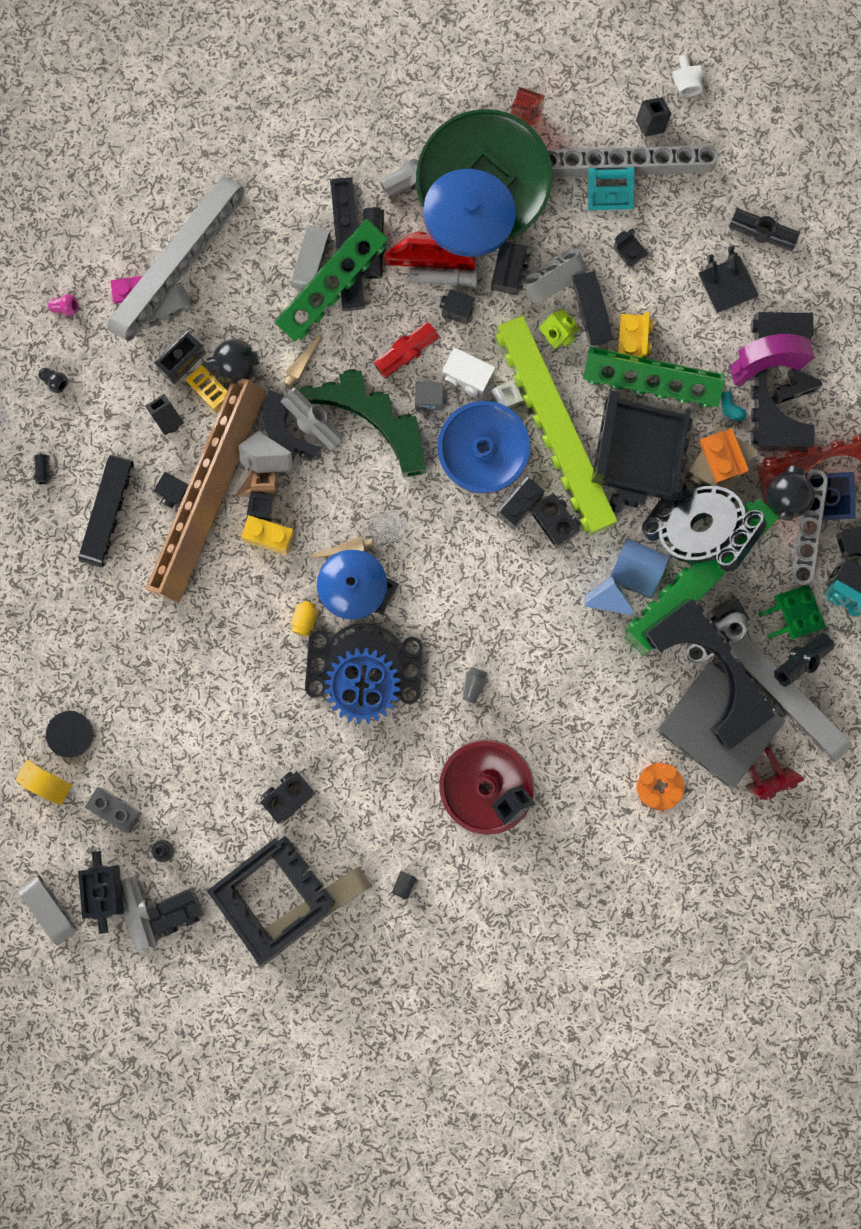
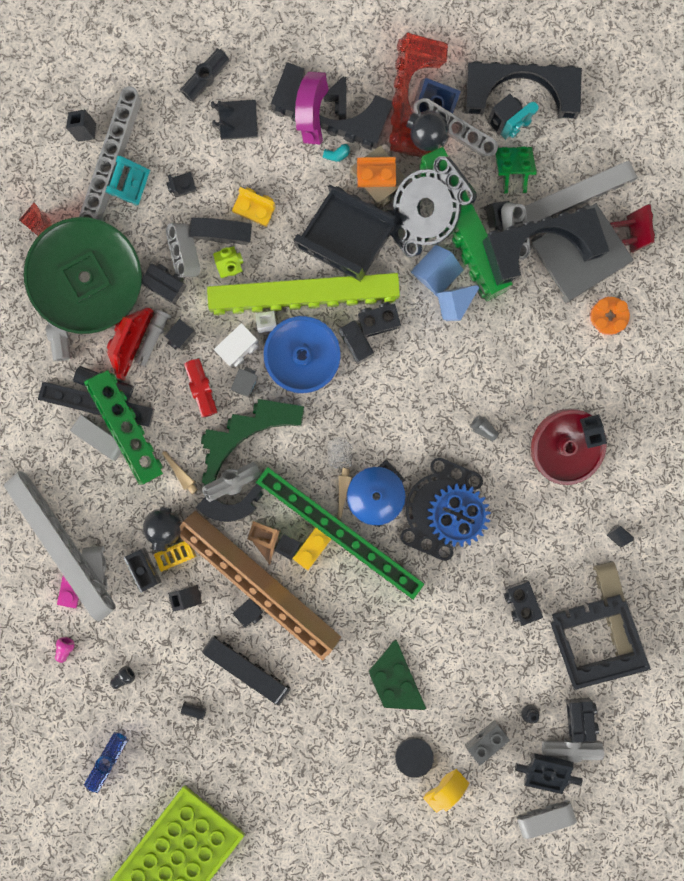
camera: 70 degrees left, 5 degrees up
(149, 682) = (394, 680): none -> dark green wing
(264, 455) = (247, 529): light grey slope -> none
(296, 560) = (340, 533): none -> green brick
(304, 618) = (388, 542): yellow brick -> none
(469, 212) = (109, 297): blue dish -> none
(631, 499) = (383, 256): black bracket -> none
(644, 367) = (303, 175): green brick -> none
(688, 78) = (59, 87): white piece -> none
(804, 659) = (554, 171): black piece -> none

